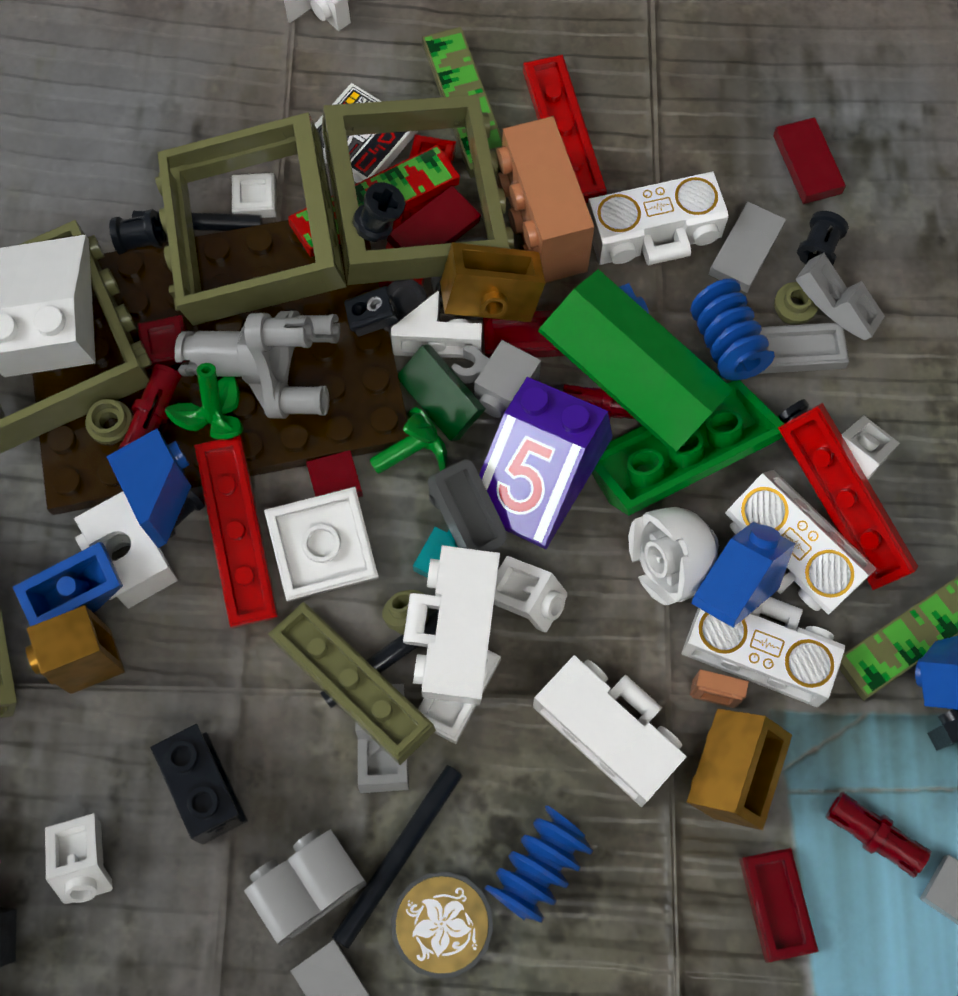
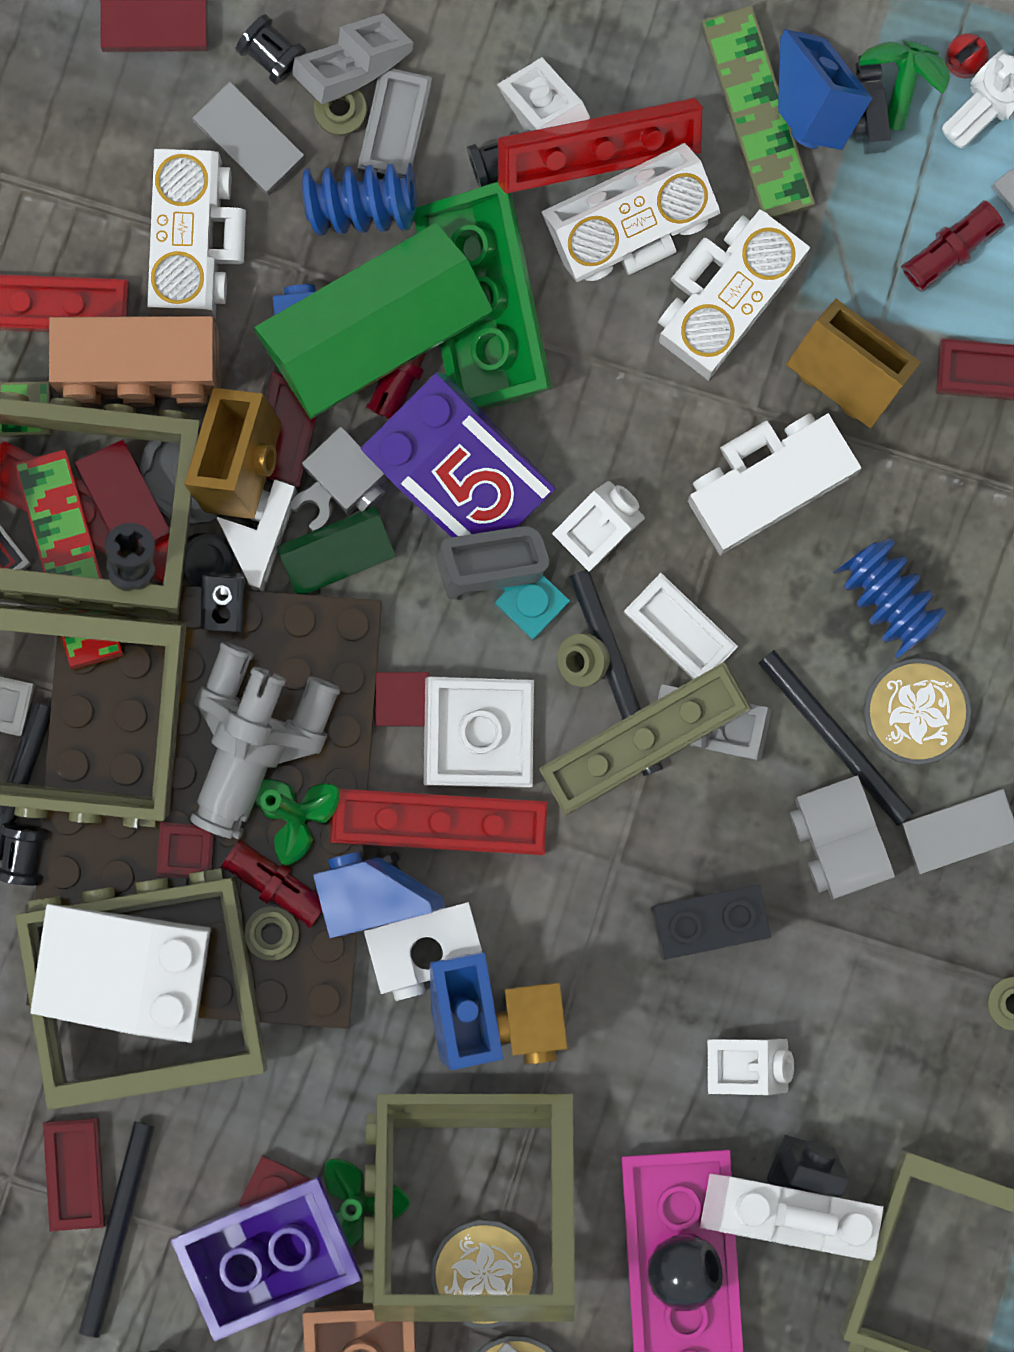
camera: 75 degrees left, 15 degrees up
(421, 435) = (388, 586): green plant -> none
(465, 603) = (627, 601): white piece -> none
(673, 551) = (607, 351): white cylinder -> none
(718, 688) = (763, 355): nougat tile -> none
(745, 574) = (658, 288): blue slope -> none

